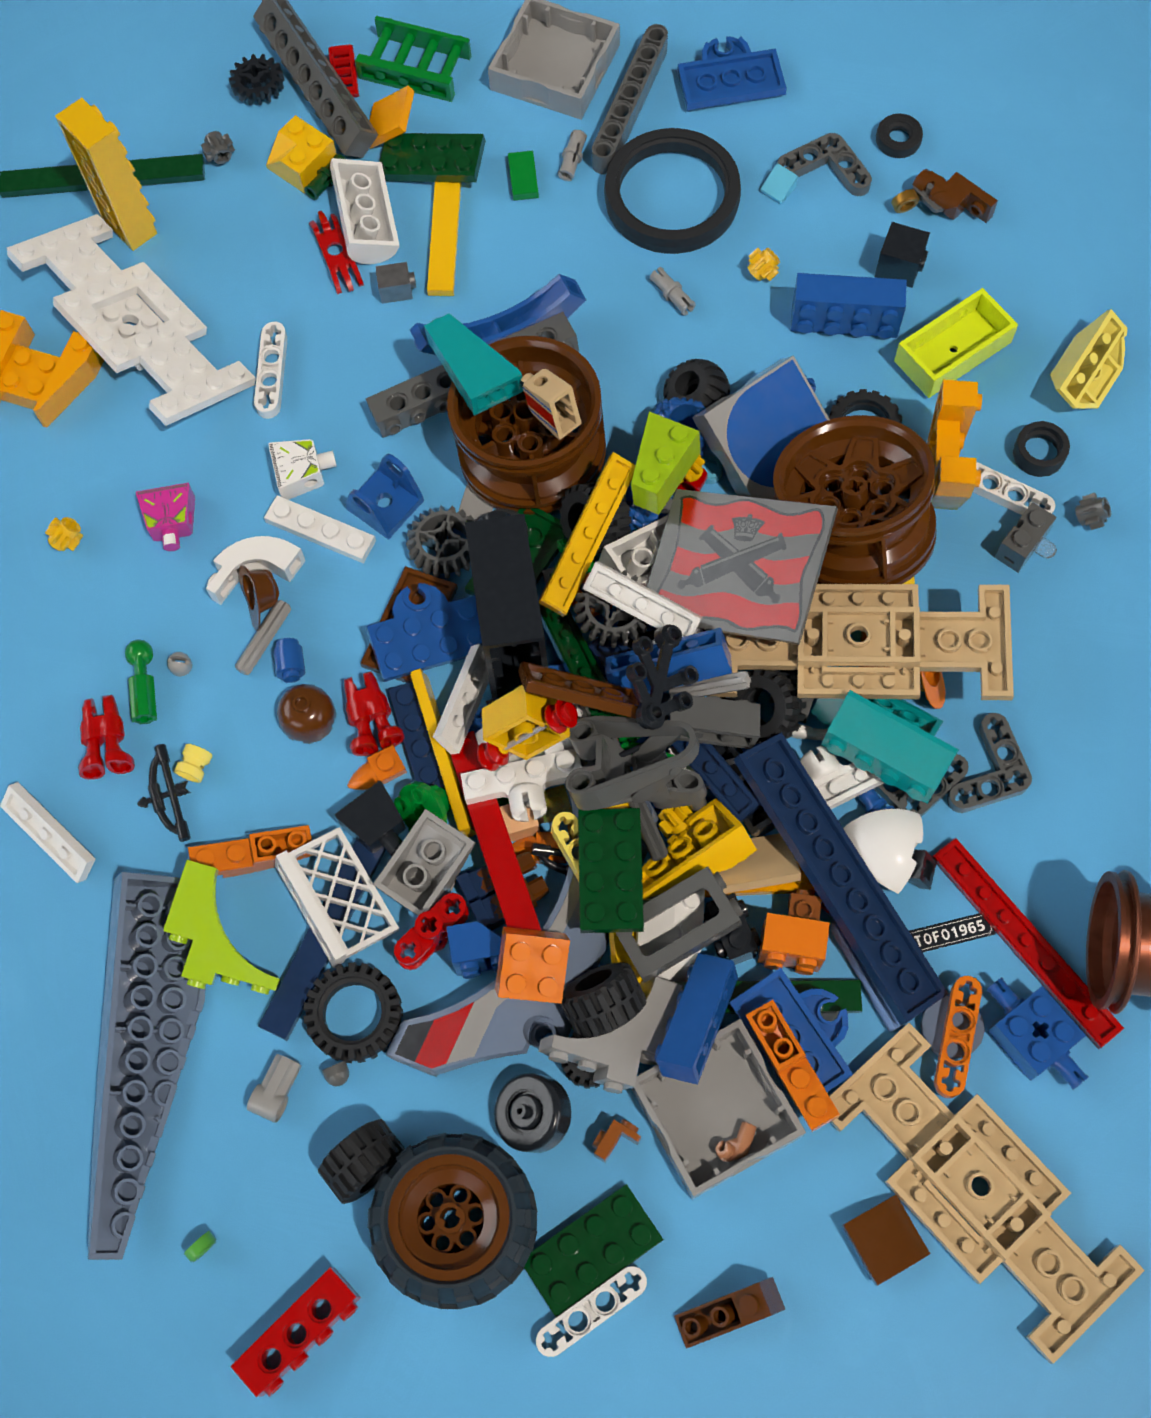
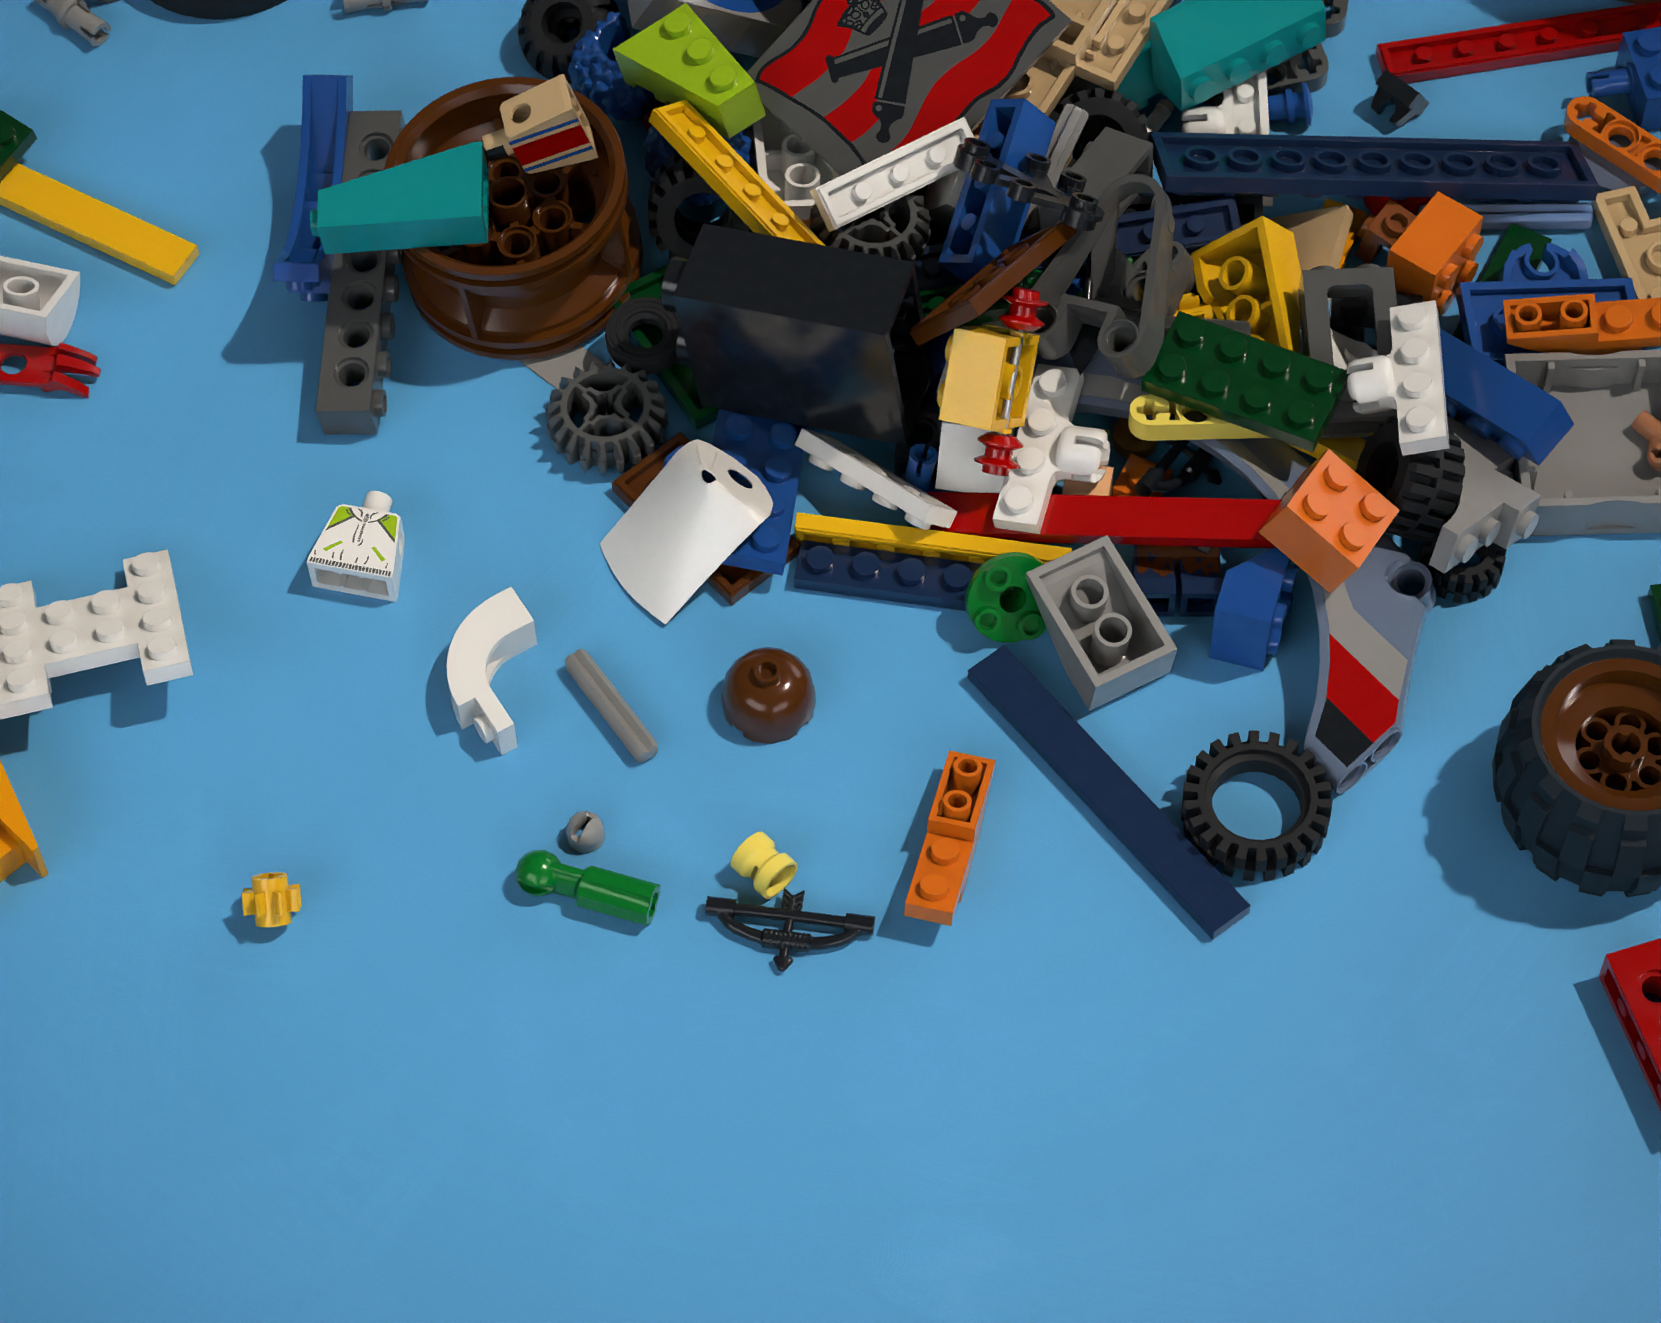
camera: 65 degrees left, 10 degrees down
(47, 832) = (761, 1099): white plate -> none
(101, 729) = (635, 967): red piece -> none
(142, 1050) = (1138, 1076): sand blue wedge -> none
(168, 513) = (327, 749): dark pink torso -> none
(200, 1247) = (1496, 1119): bright green tile -> none
(211, 953) = (1031, 925): lime arch -> none
(259, 591) = (545, 680): reddish brown piece -> none
(270, 370) = (168, 522): white beam -> none
(271, 1097) = (1323, 953): light grey piece -> none
(289, 660) = (673, 680): blue brick -> none
(314, 911) = (1082, 782): white fence -> none
(320, 529) = (478, 568): white plate -> none
(336, 1074) = (1331, 861): dark grey hinge -> none
(359, 1160) = (1482, 854): black tyre -> none
(368, 706) = (804, 610): red piece -> none
(373, 624) = (684, 528): none -> white piece
(373, 820) = (995, 659): black torso -> none
(381, 766) = (907, 644): orange plate -> none
(391, 484) = (472, 444): blue hose -> none
(395, 282) = (132, 309): flat silver brick -> none
(420, 936) = (1202, 664): red axle -> none
(523, 175) = (59, 85): green tile -> none
(532, 1113) = (1506, 638): black wheel -> none
(607, 1140) = (1583, 574): dark orange bracket -> none
(650, 966) = (1407, 379): none -> white plate
(887, 844) = (1355, 102): white brick -> none
(952, 932) = (1496, 103): black sticker -> none

